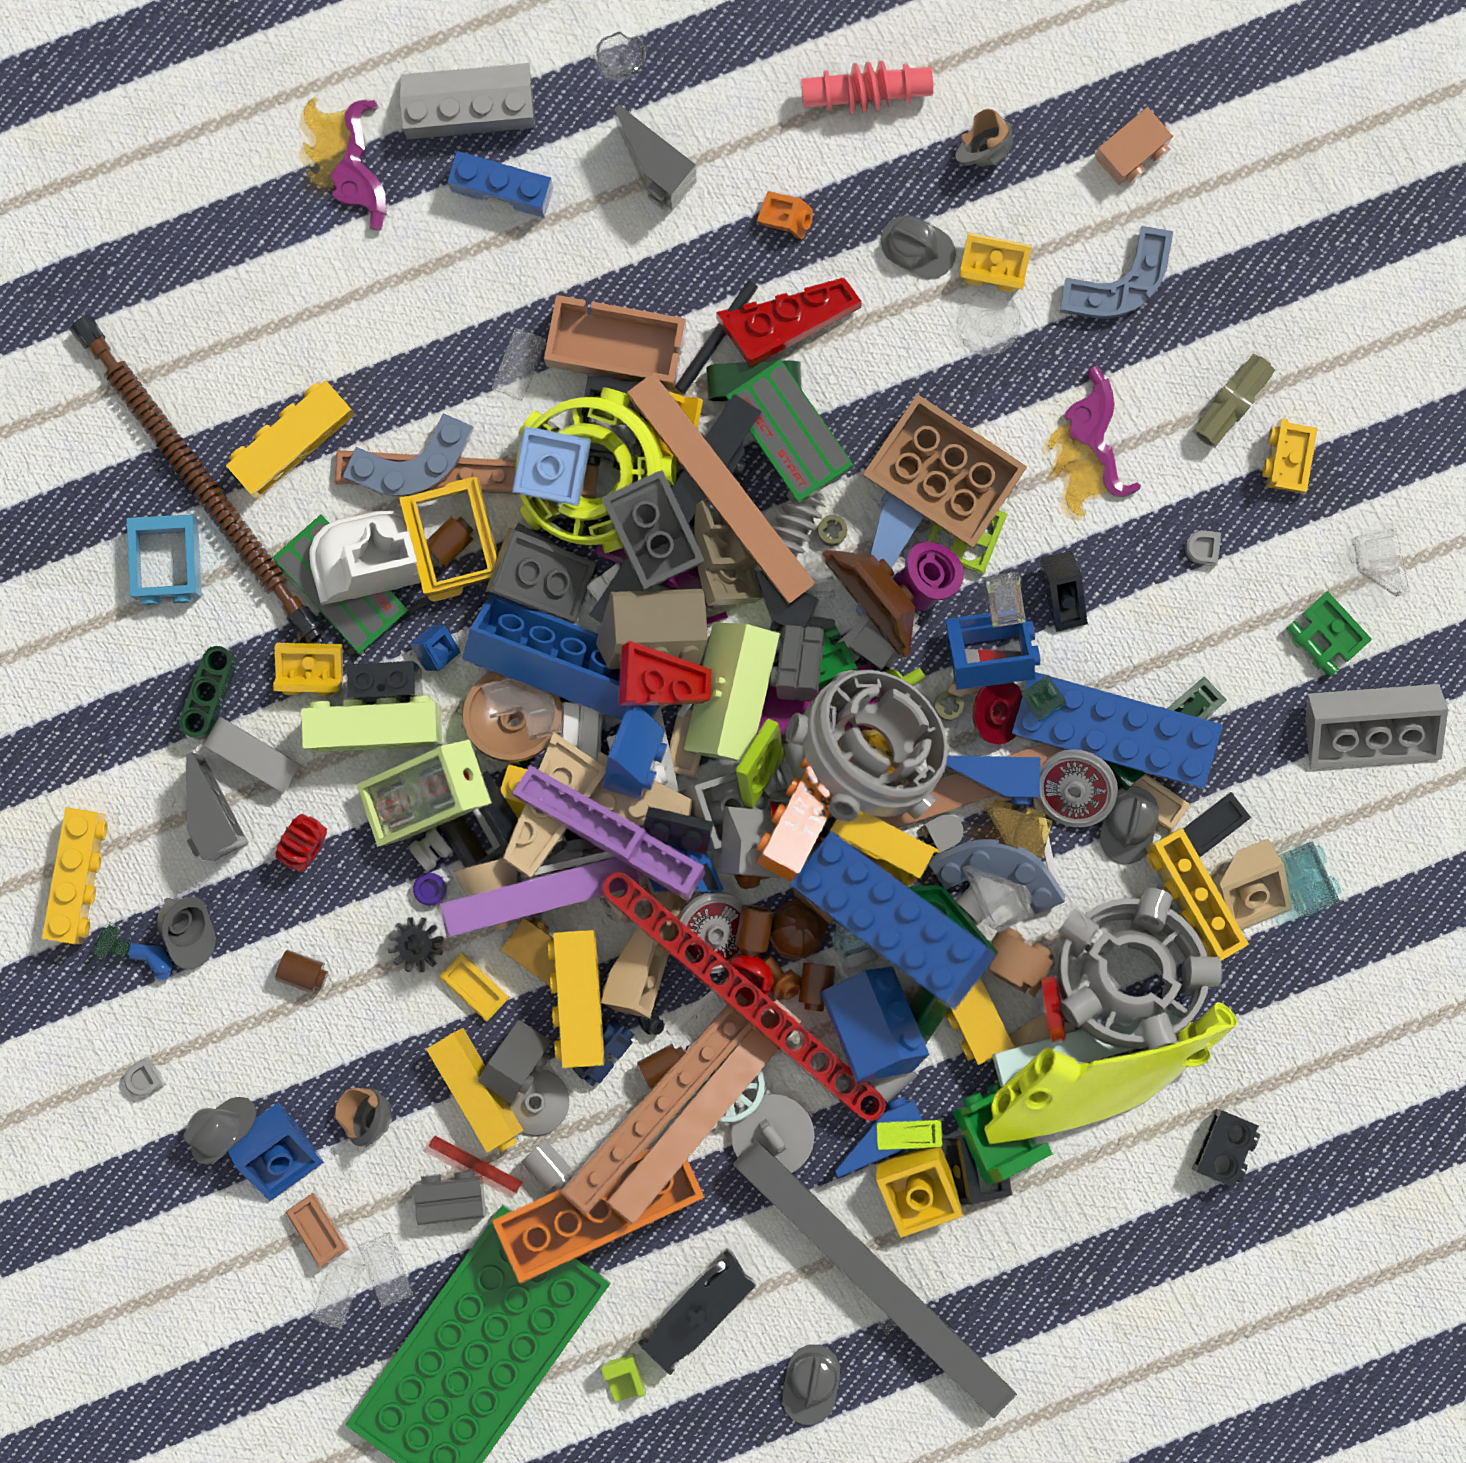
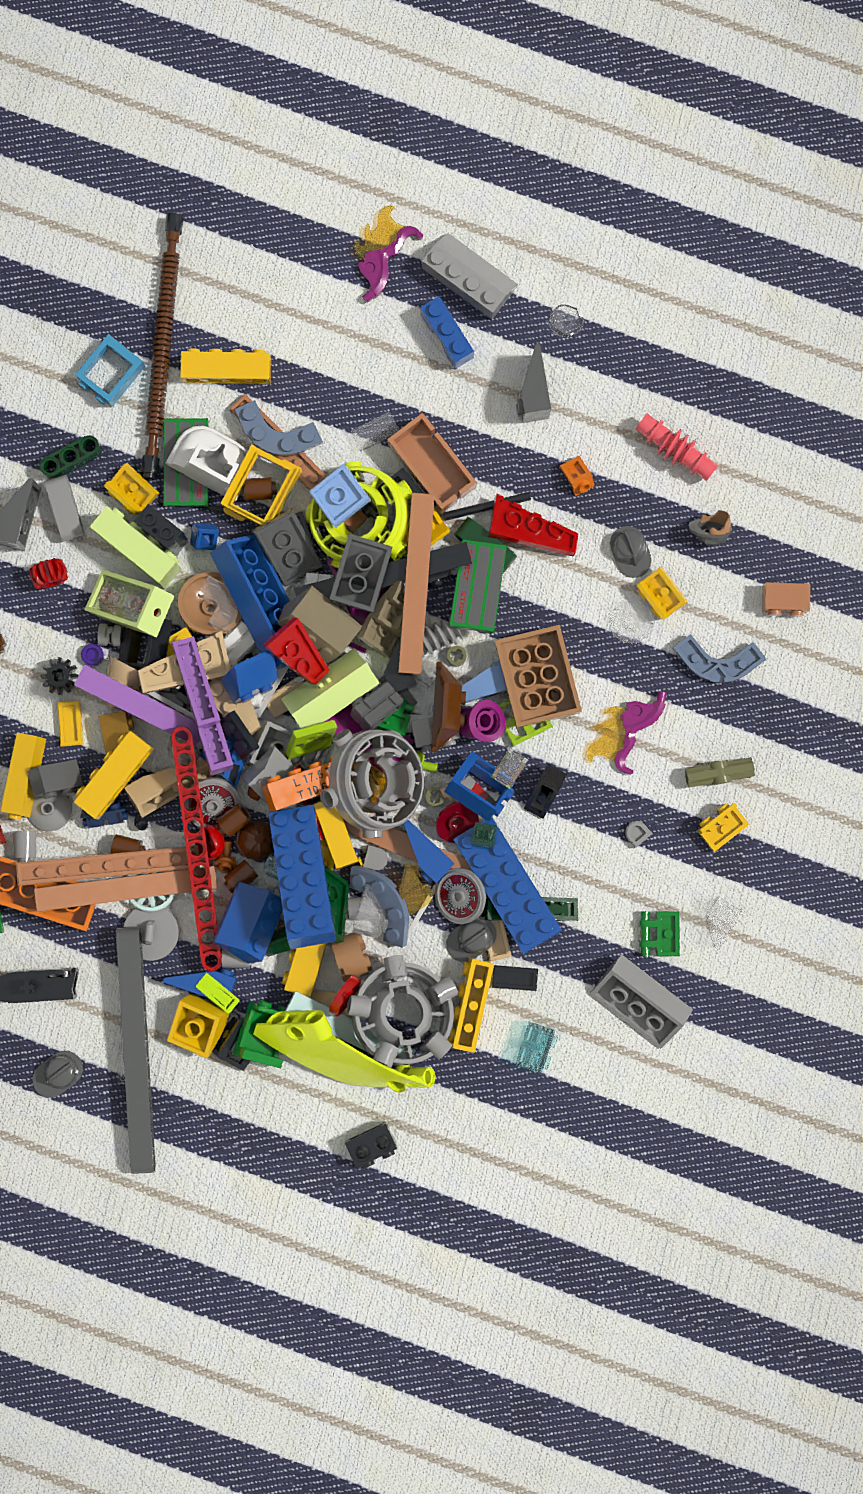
camera: 40 degrees right, 0 degrees up
(1256, 885) = (505, 1026): tan slope -> none

